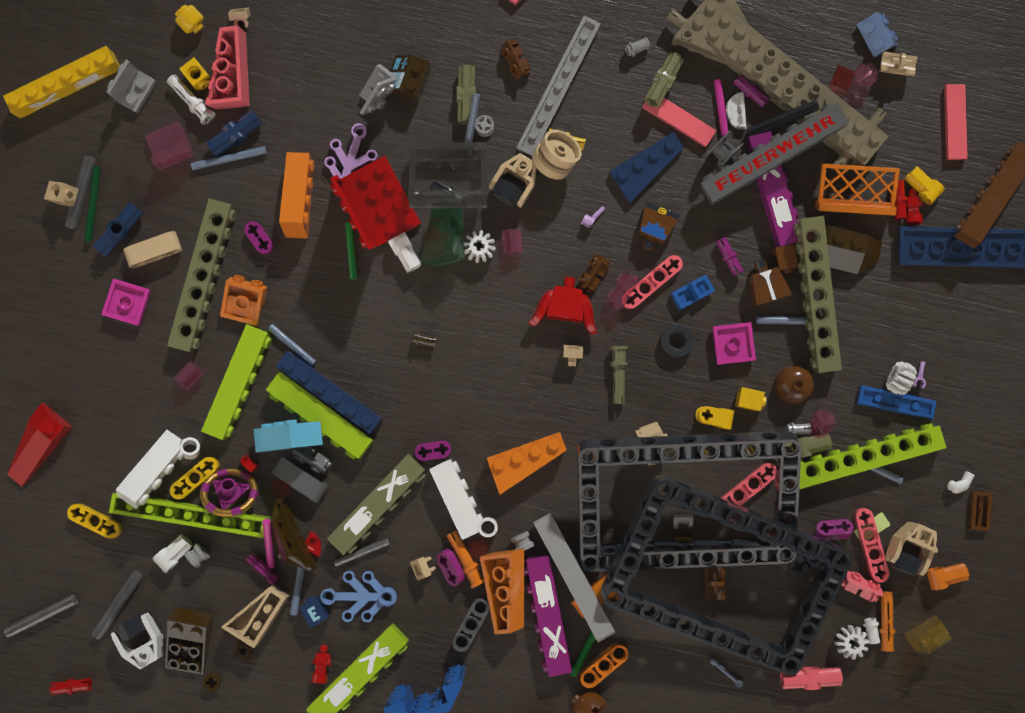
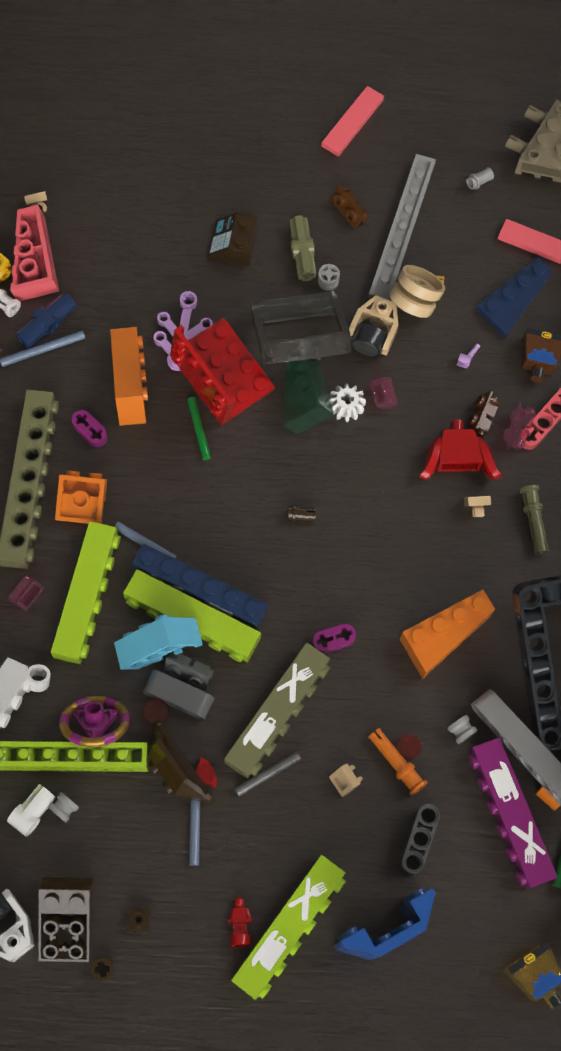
camera: 15 degrees left, 15 degrees down
(187, 491) = (37, 714): yellow beam -> none
(249, 464) = (113, 686): red tile -> none
(257, 617) = (151, 870): tan wedge -> none
(262, 569) = (147, 812): magenta axle -> none
(268, 543) = (153, 775): dark pink bar -> none
(314, 611) = (221, 854): dark blue brick -> none
(362, 596) = (277, 827): medium blue plant -> none
(377, 88) = (203, 251): light grey bracket -> none
(403, 248) = (259, 416): white piece -> none
(450, 567) = (381, 774): magenta beam -> none
(457, 500) = (375, 691): white hinge -> none
(472, 118) = (315, 266): sand blue bar -> none
(505, 589) = (454, 786): orange wedge -> none
(664, 79) = (516, 205): olive piece -> none

